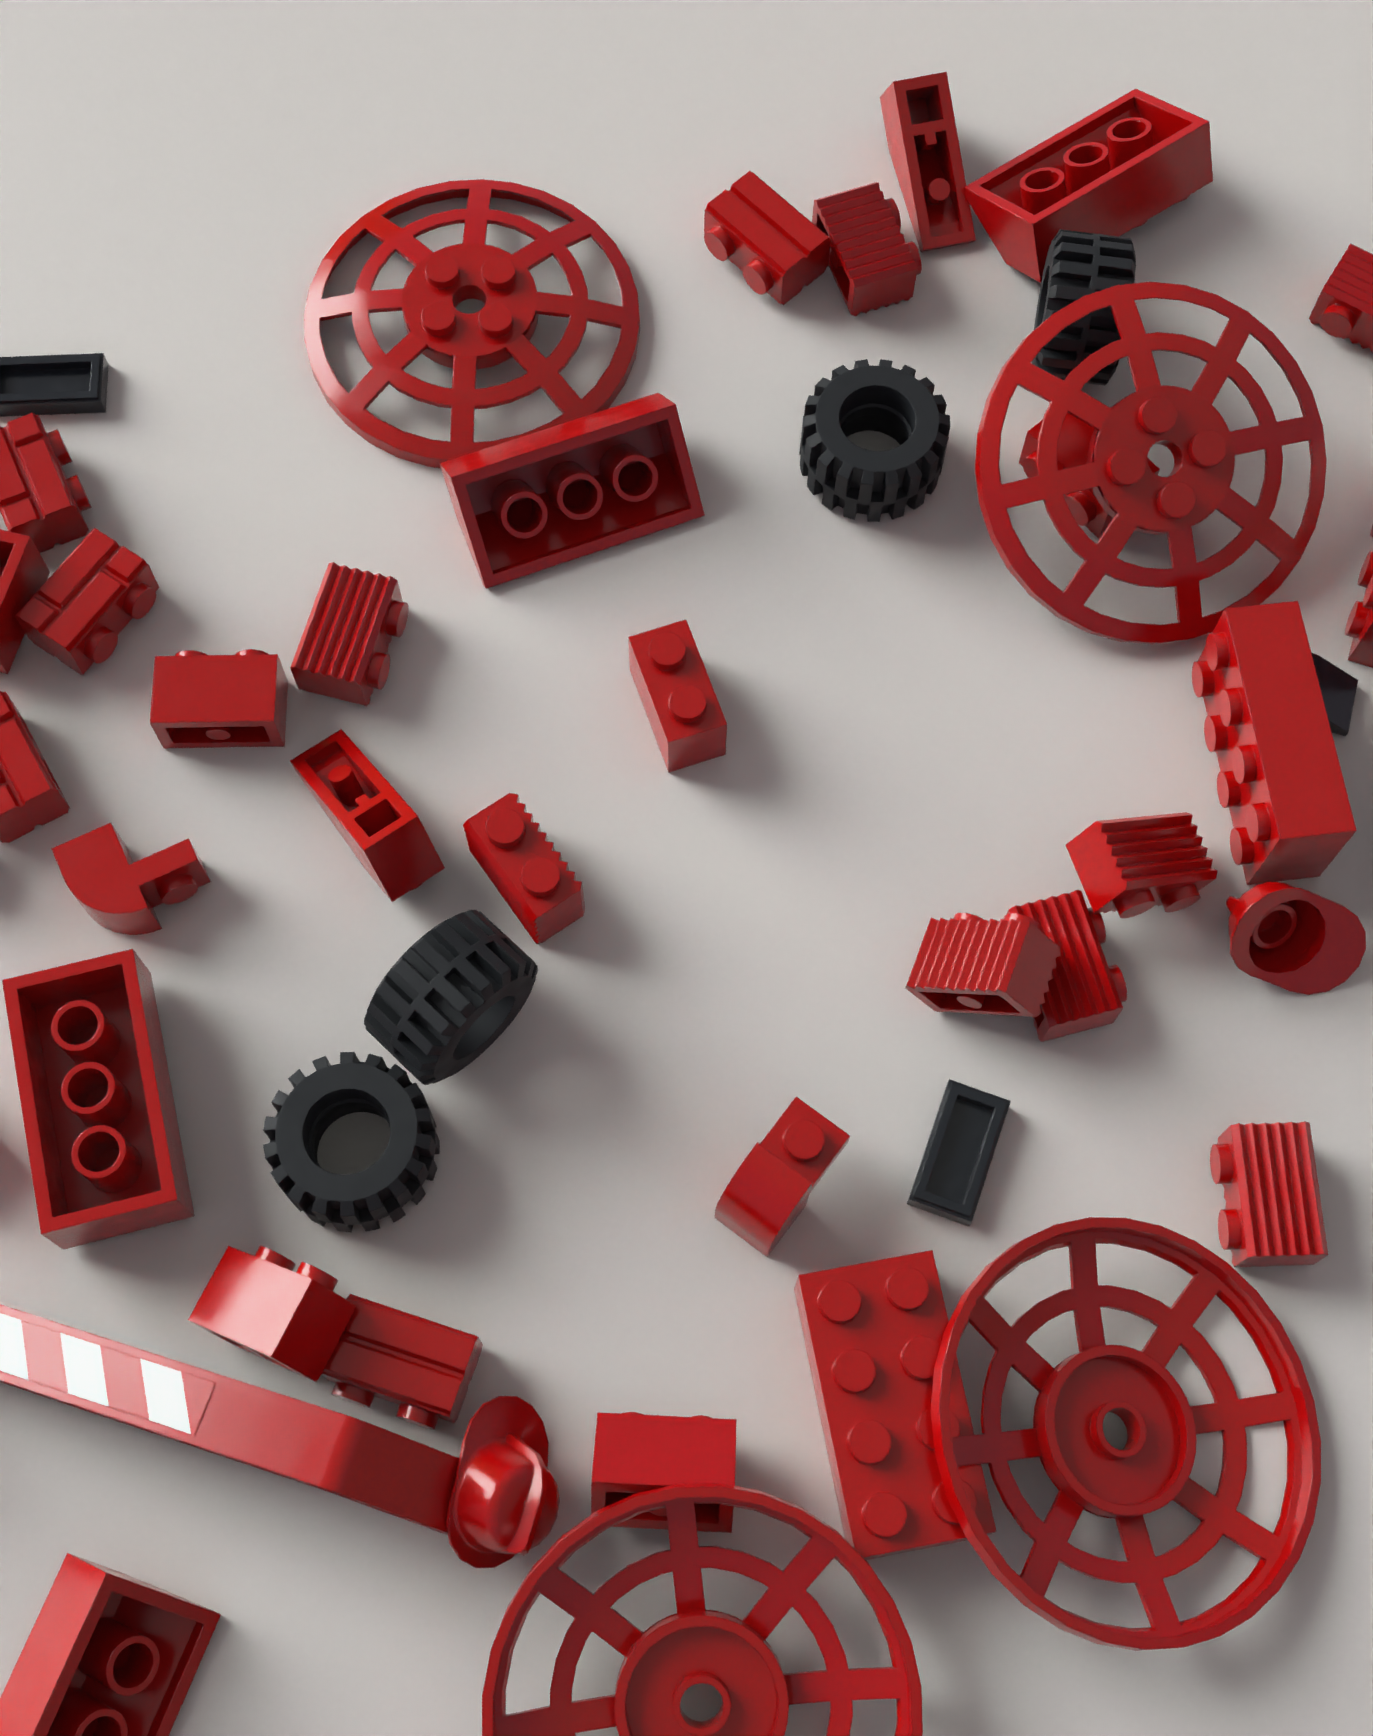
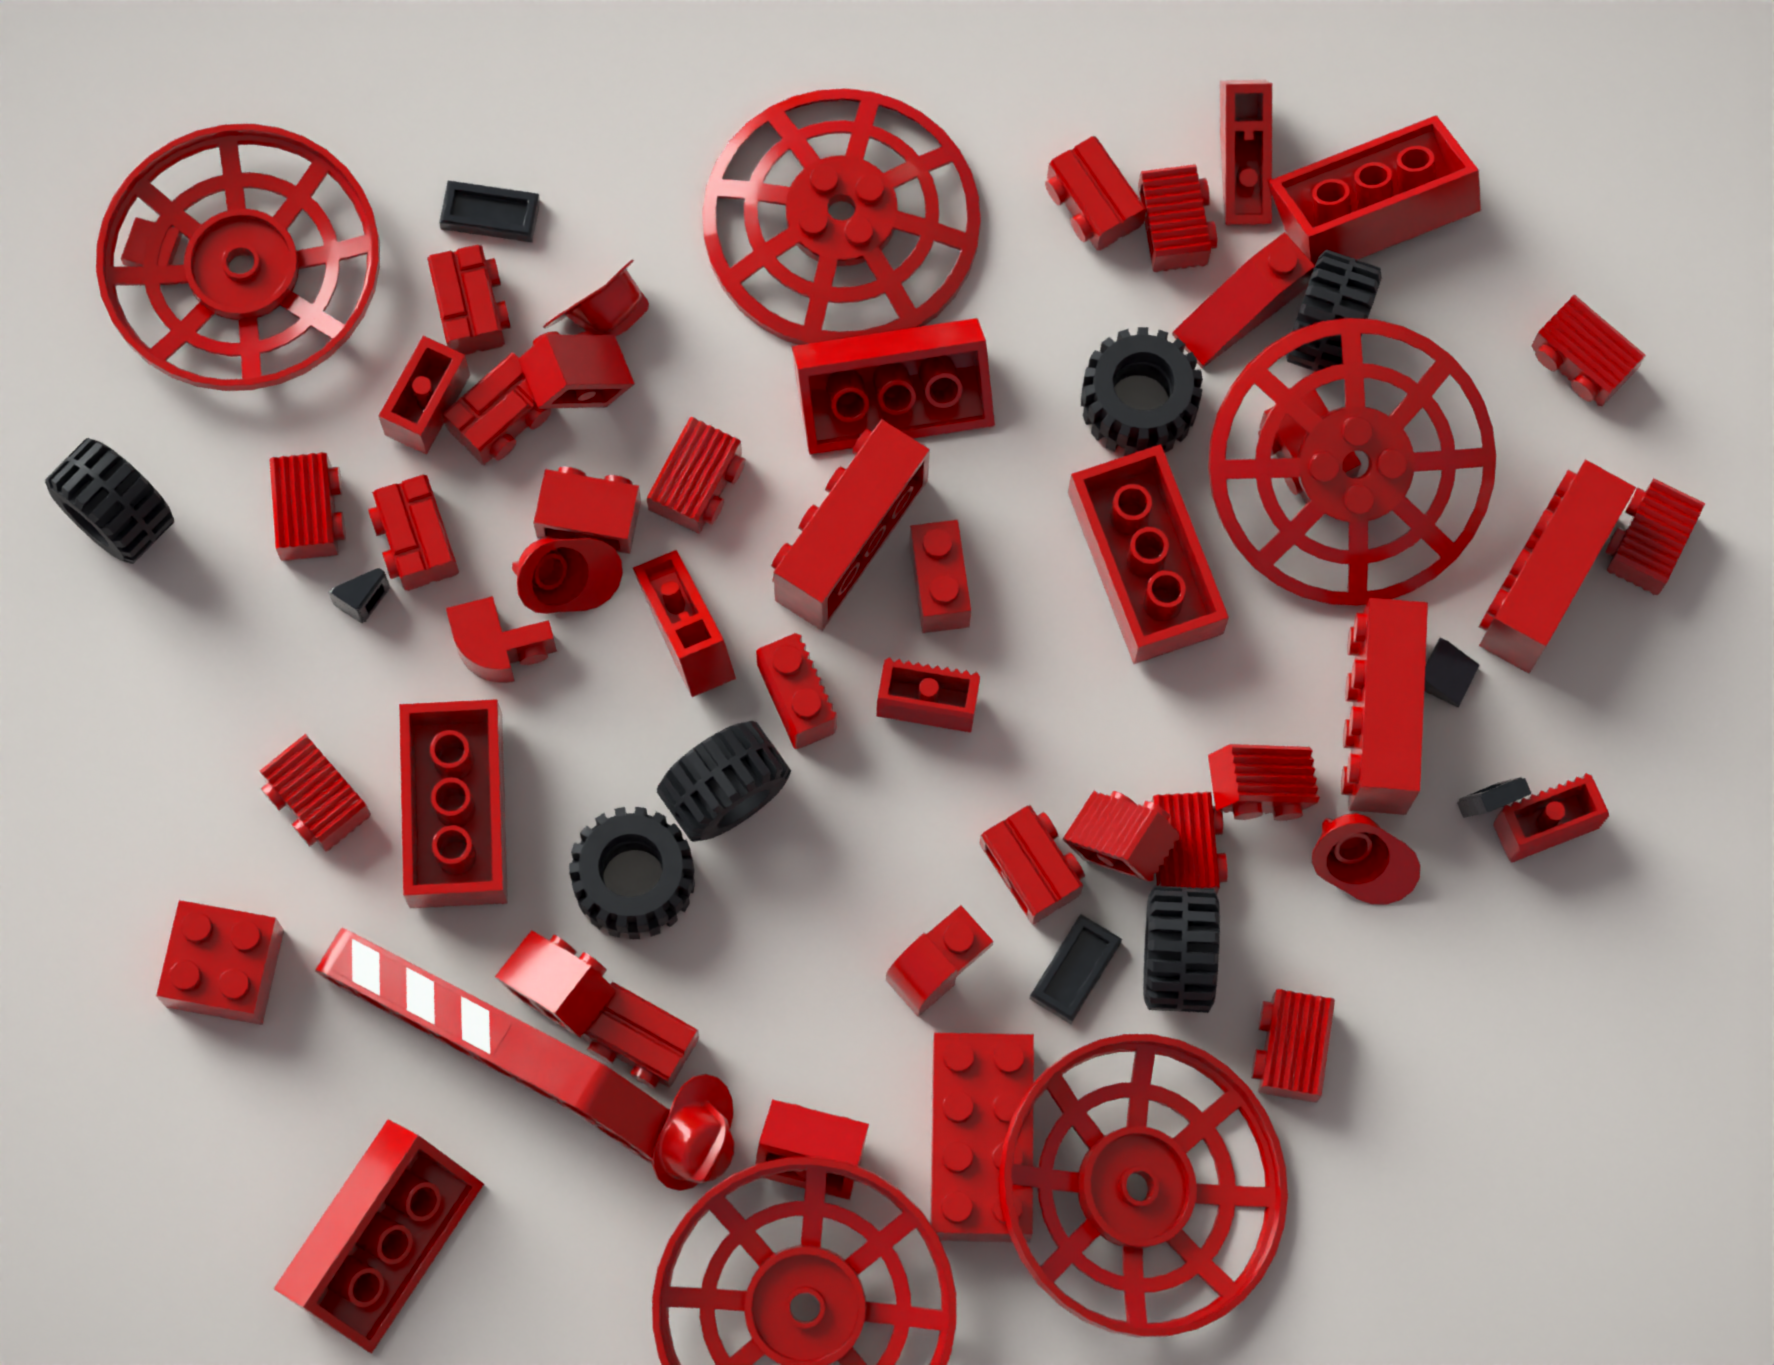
camera: 10 degrees right, 5 degrees up
(175, 534) = (575, 370): none -> red brick
(201, 459) = (610, 308): none -> red piece
(206, 781) = (567, 574): none -> red piece
(551, 651) = (850, 523): none -> red brick
(694, 840) = (927, 695): none -> red brick
(873, 1026) = (1032, 863): none -> red brick
(928, 621) = (1147, 554): none -> red brick
(975, 313) = (1246, 299): none -> red slope
(1099, 1097) = (1181, 949): none -> black tyre

